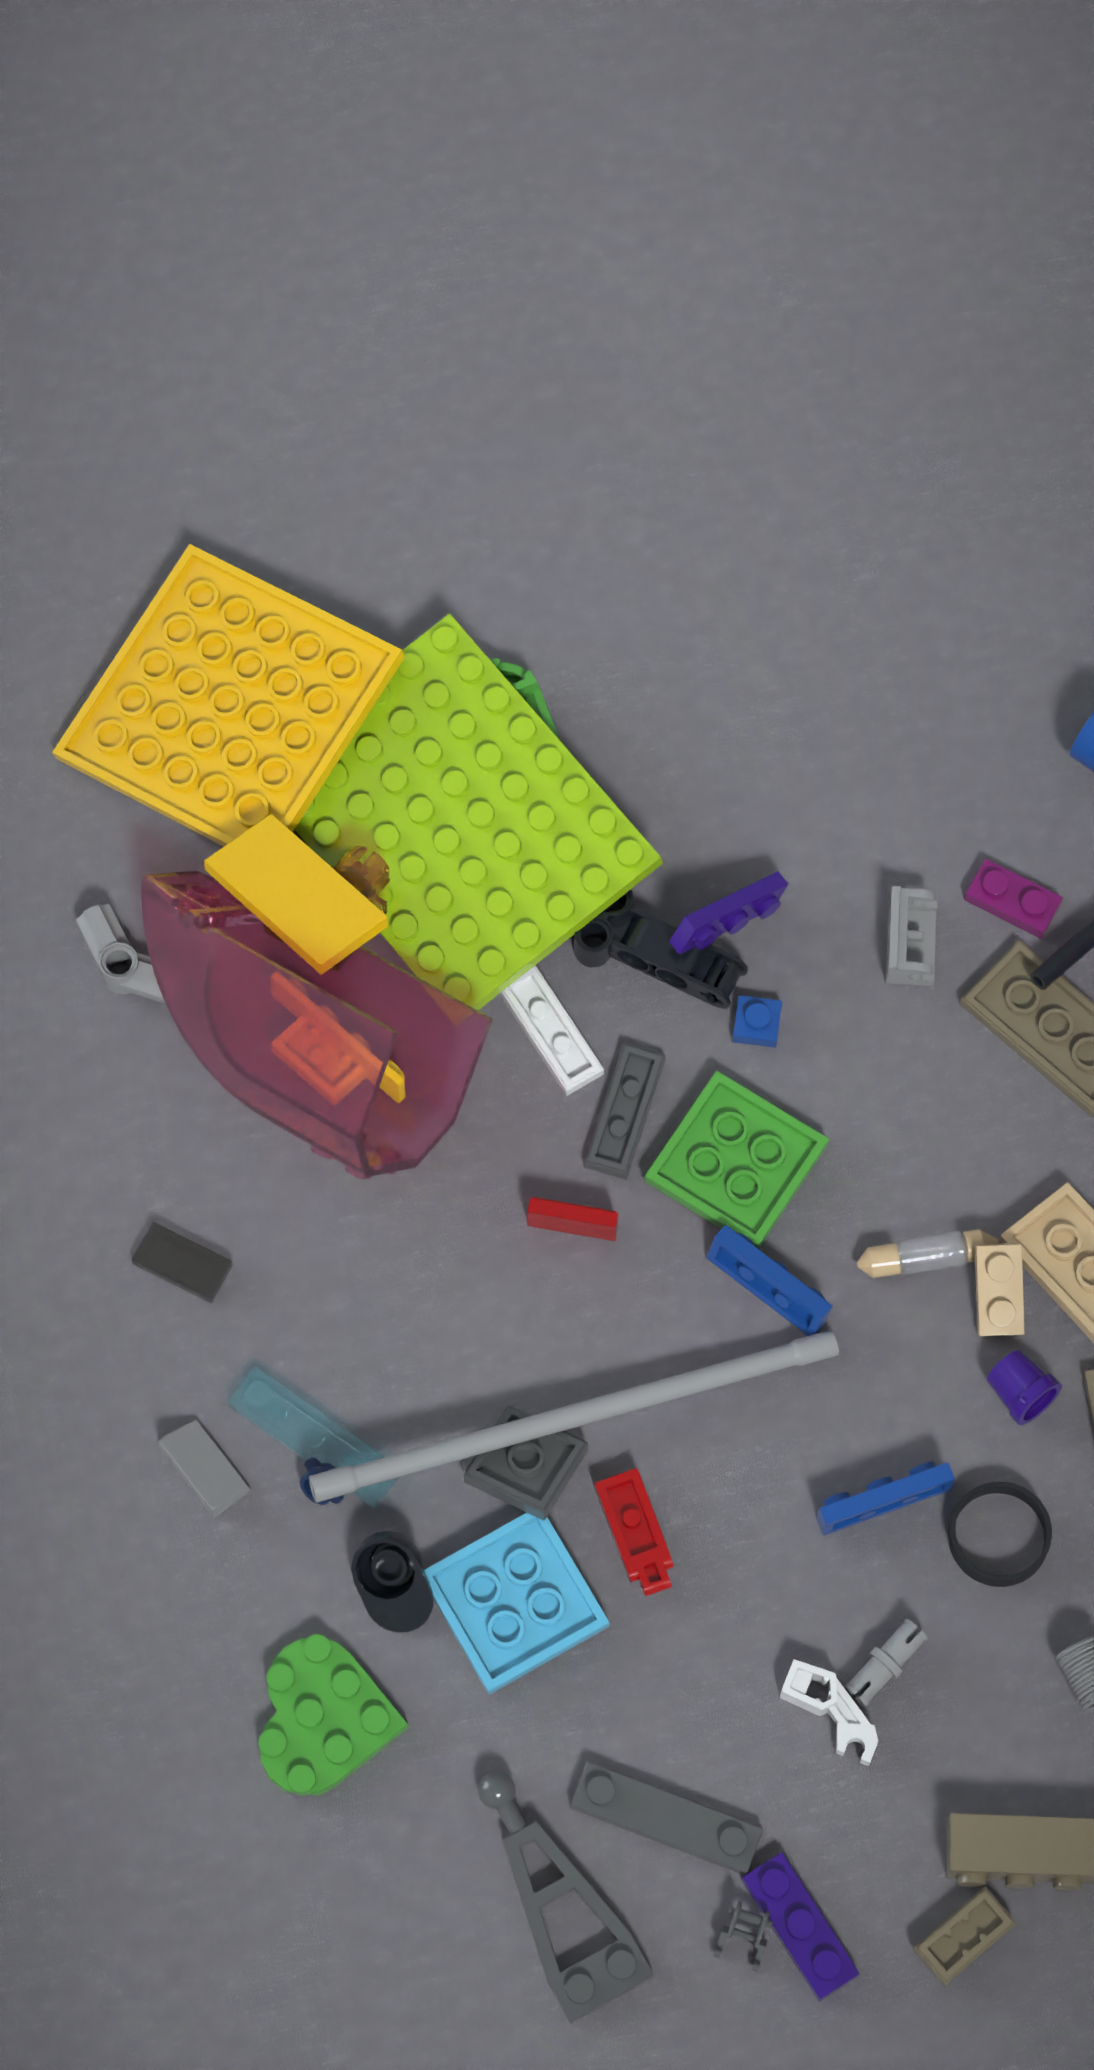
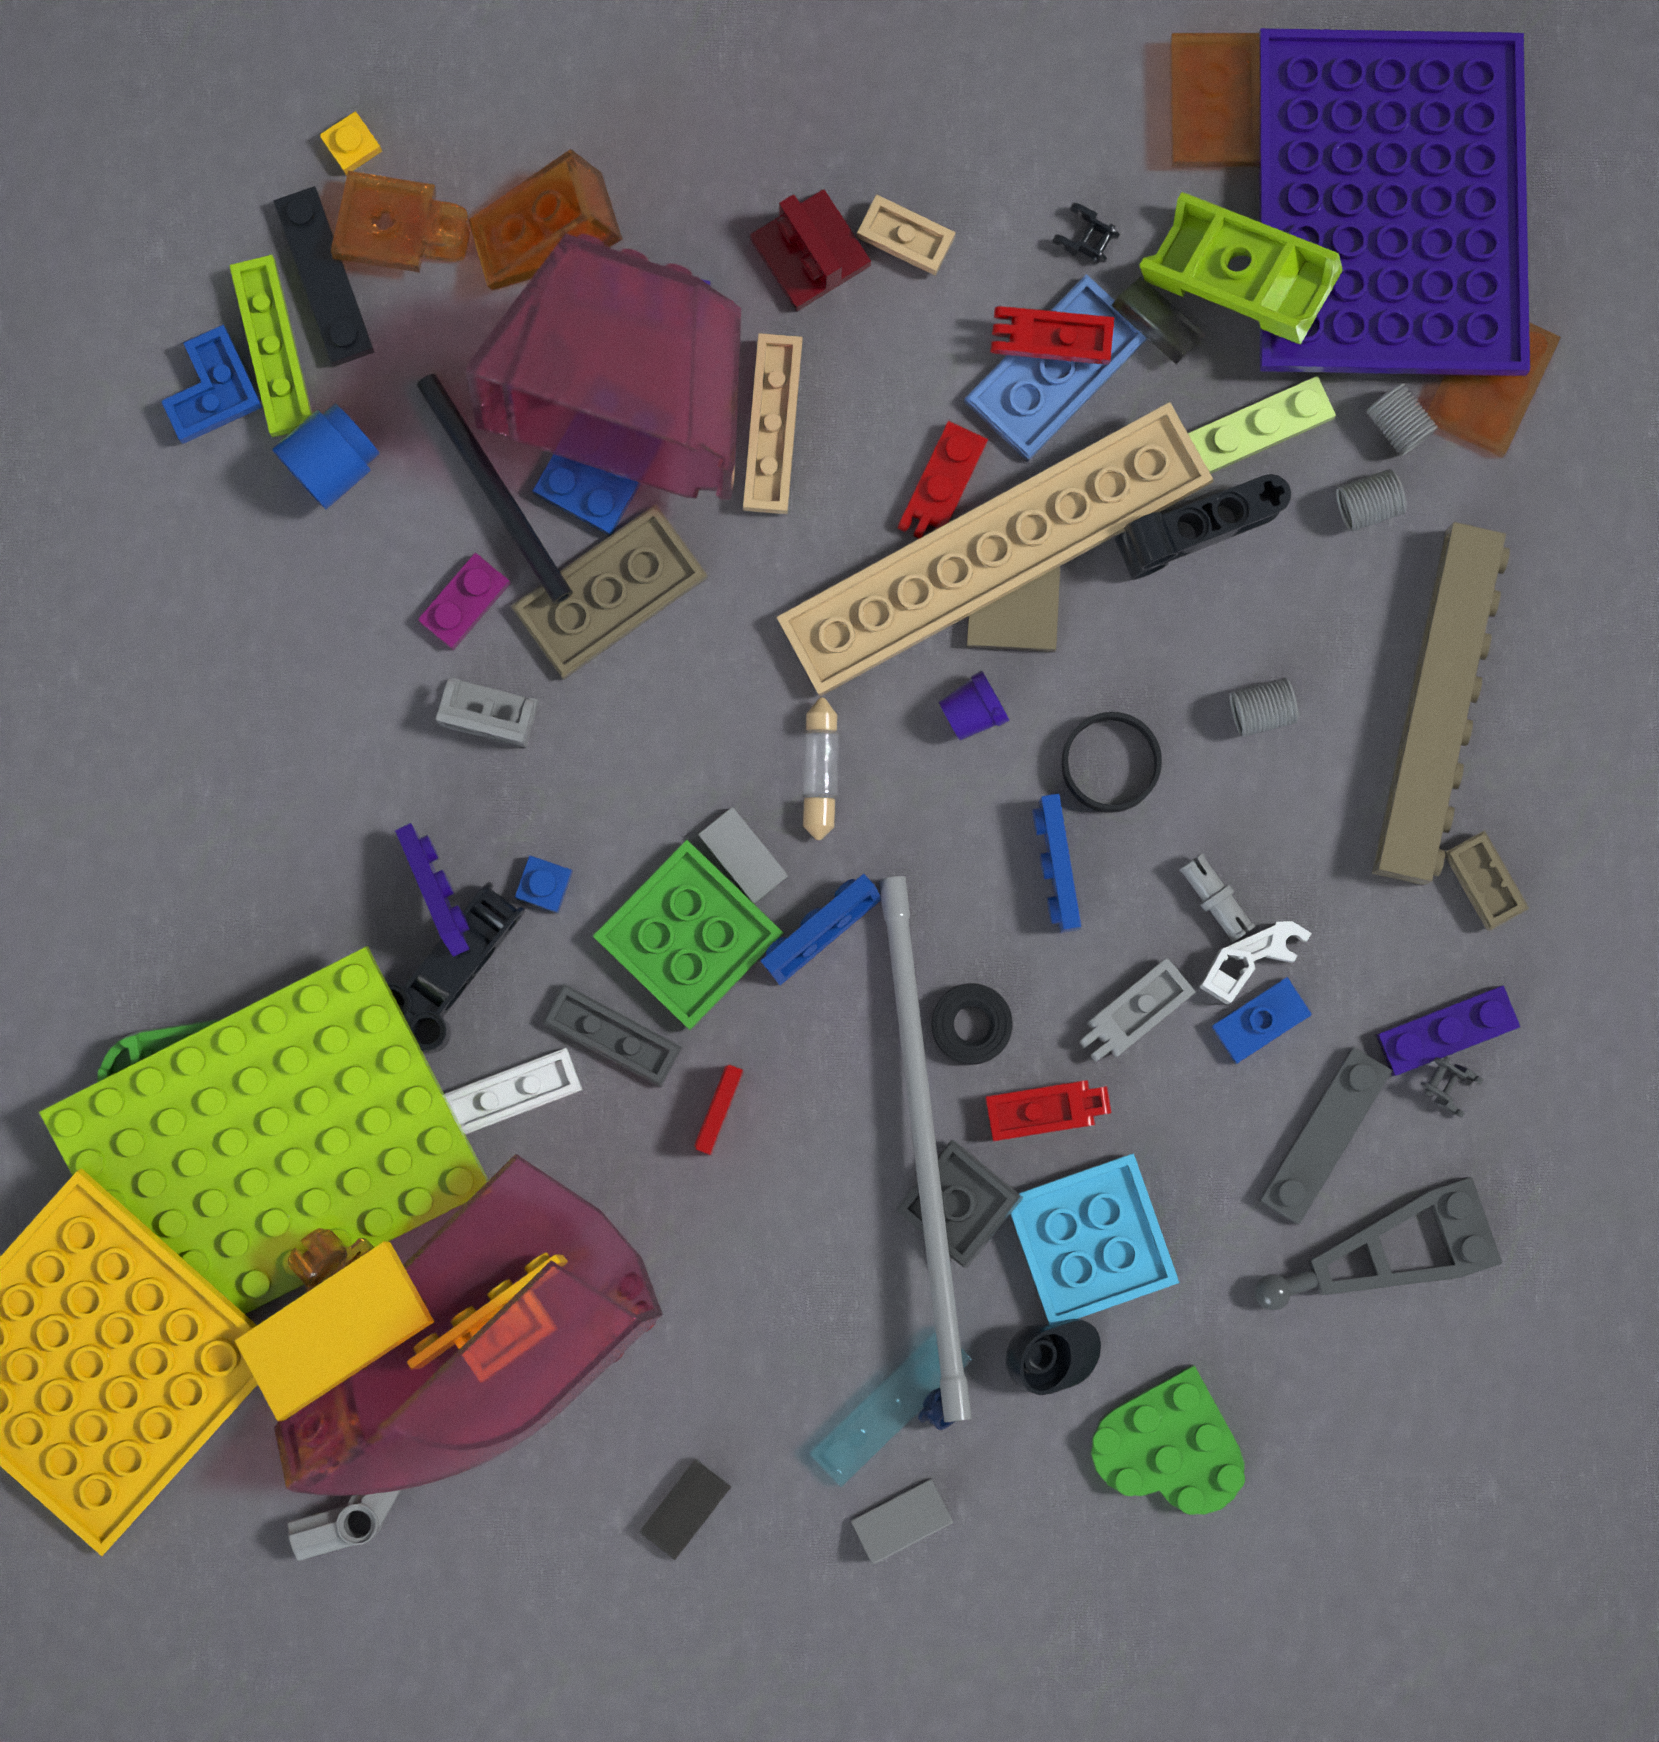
camera: 80 degrees left, 15 degrees up
(706, 1417) = (999, 1018): none -> black tyre
(754, 1603) = (1138, 1010): none -> light grey hinge
(770, 1732) = (1261, 1020): none -> blue plate
(825, 1199) = (743, 855): none -> light grey tile
(999, 1289) = (872, 707): tan plate -> none

